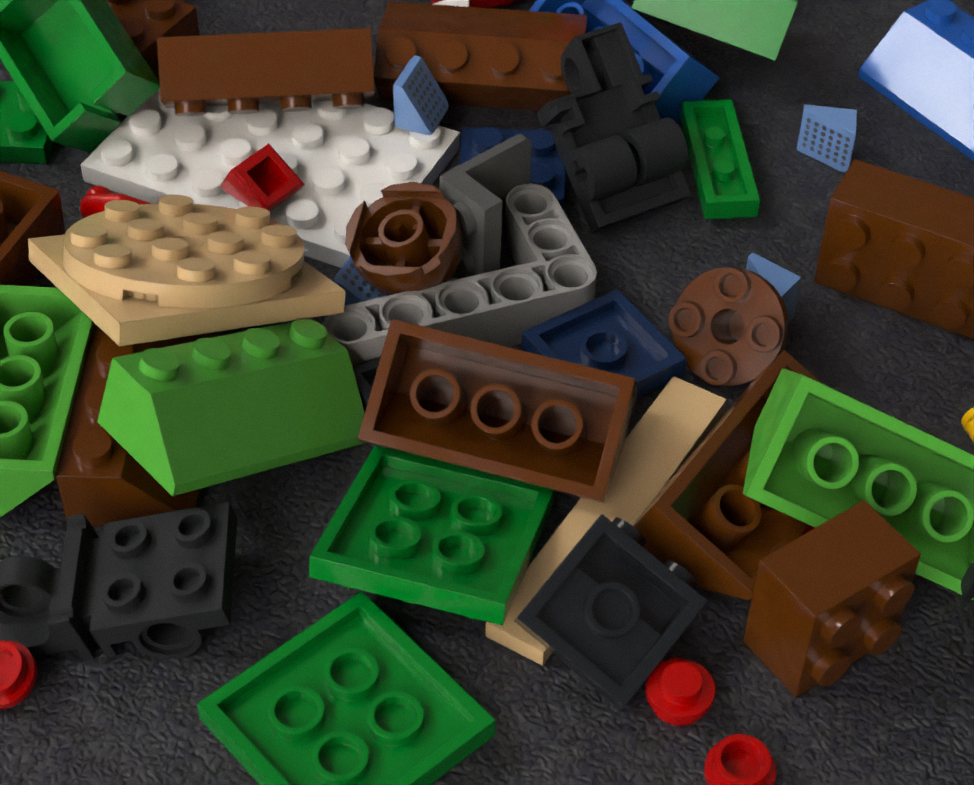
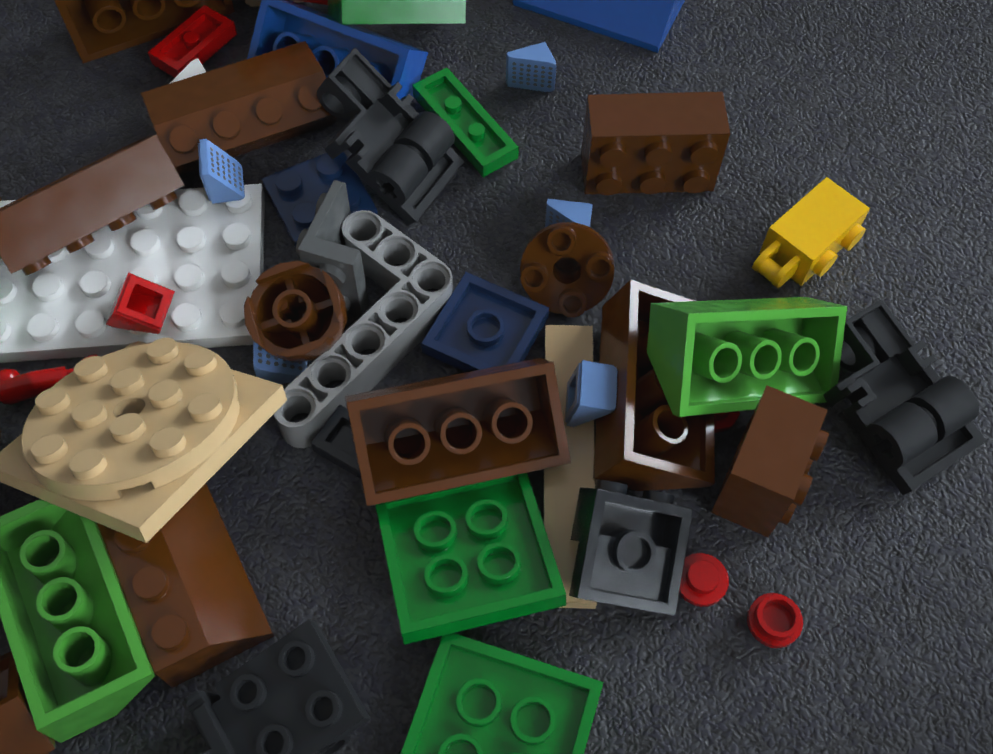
camera: 30 degrees left, 15 degrees up
(233, 404) = (257, 535): bright green slope -> none
(669, 443) = (590, 392): none -> medium blue slope

